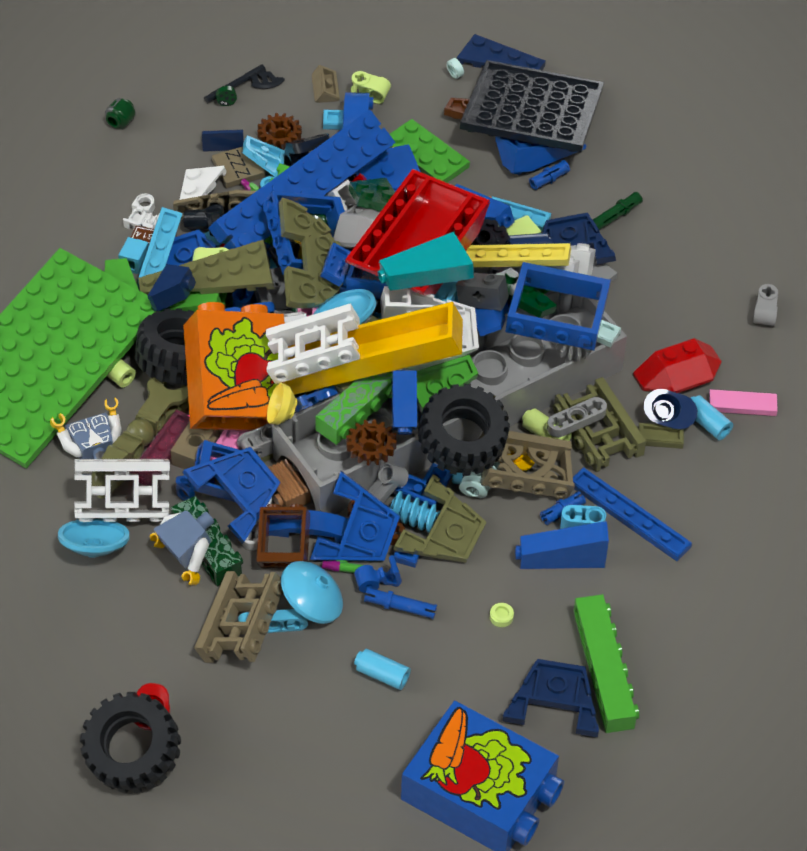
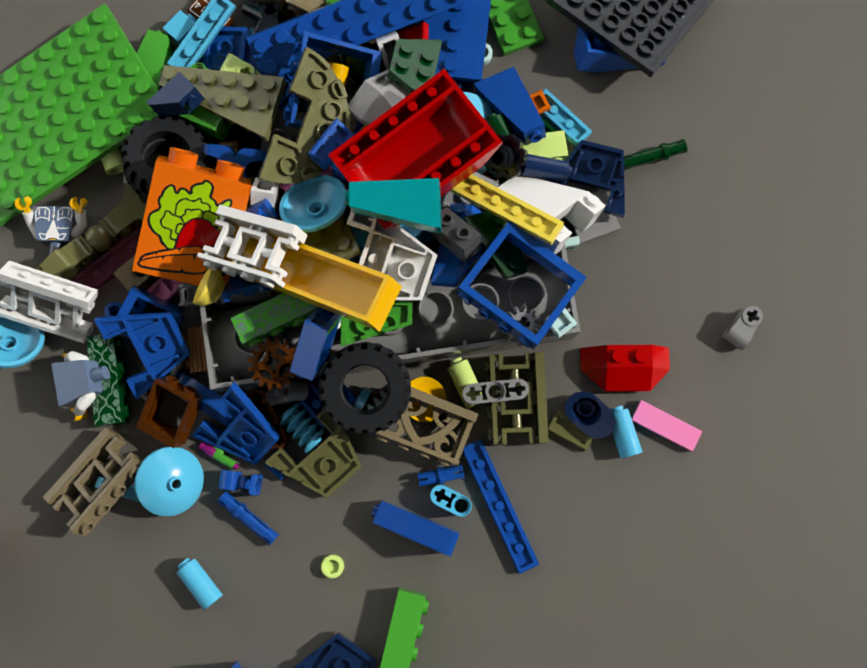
camera: 25 degrees right, 30 degrees up
(549, 175) = (626, 82): blue pin -> none

